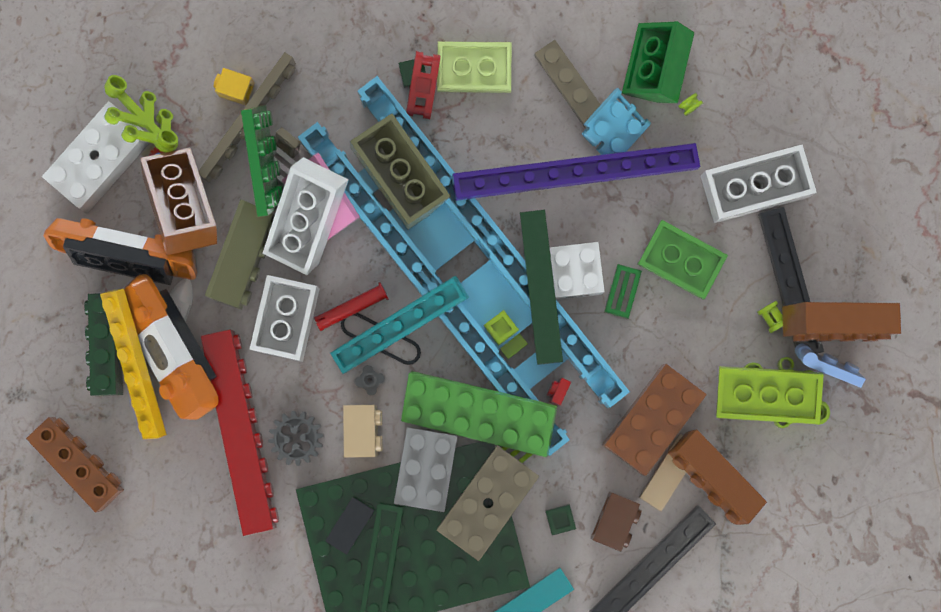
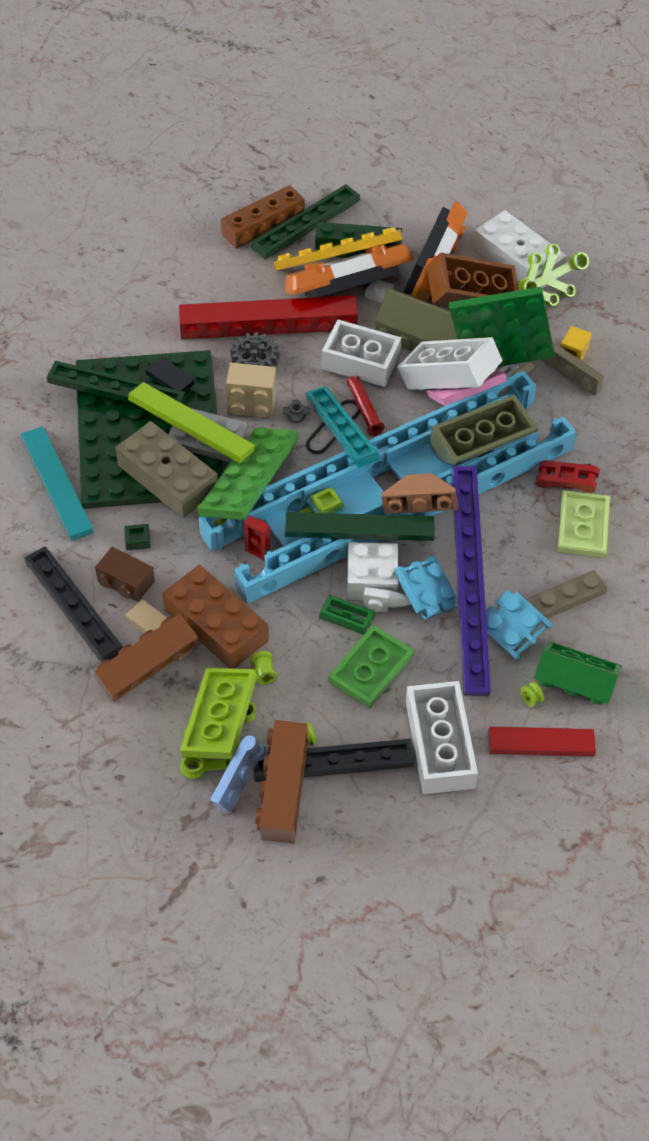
camera: 100 degrees right, 30 degrees down
(74, 412) = (305, 221): none -> dark green plate
(426, 487) = (191, 422): none -> lime tile
(499, 228) = (419, 494): none -> nougat slope
(590, 212) = (427, 587): none -> medium azure plate
(608, 262) = (381, 599): none -> white plate
(702, 363) = (263, 665): none -> lime bush
(736, 93) = (541, 741): none -> red tile

